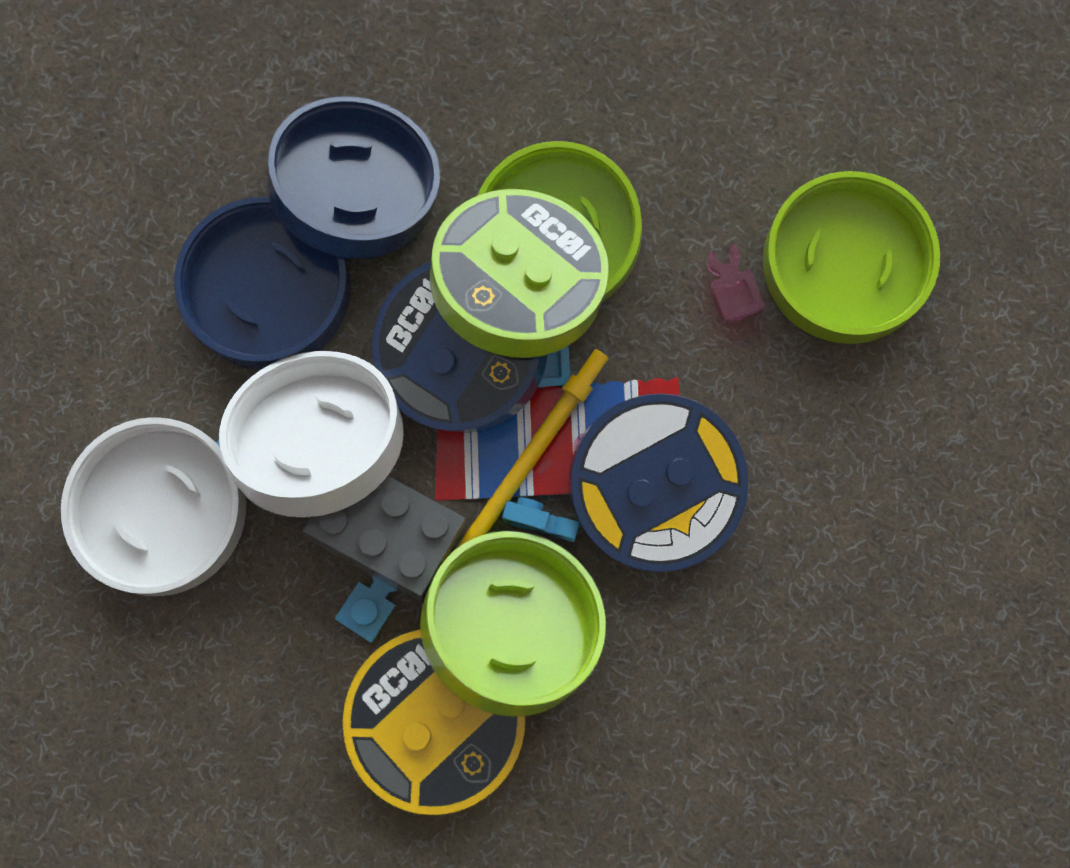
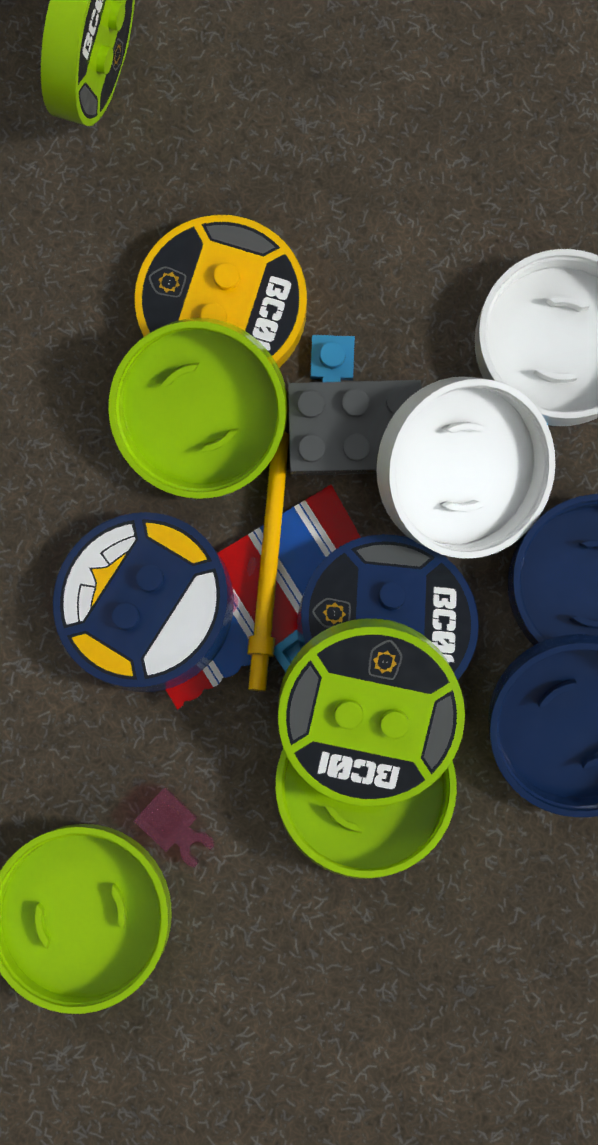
camera: 150 degrees right, 5 degrees up
(529, 516) = (239, 511): dark azure plate -> none

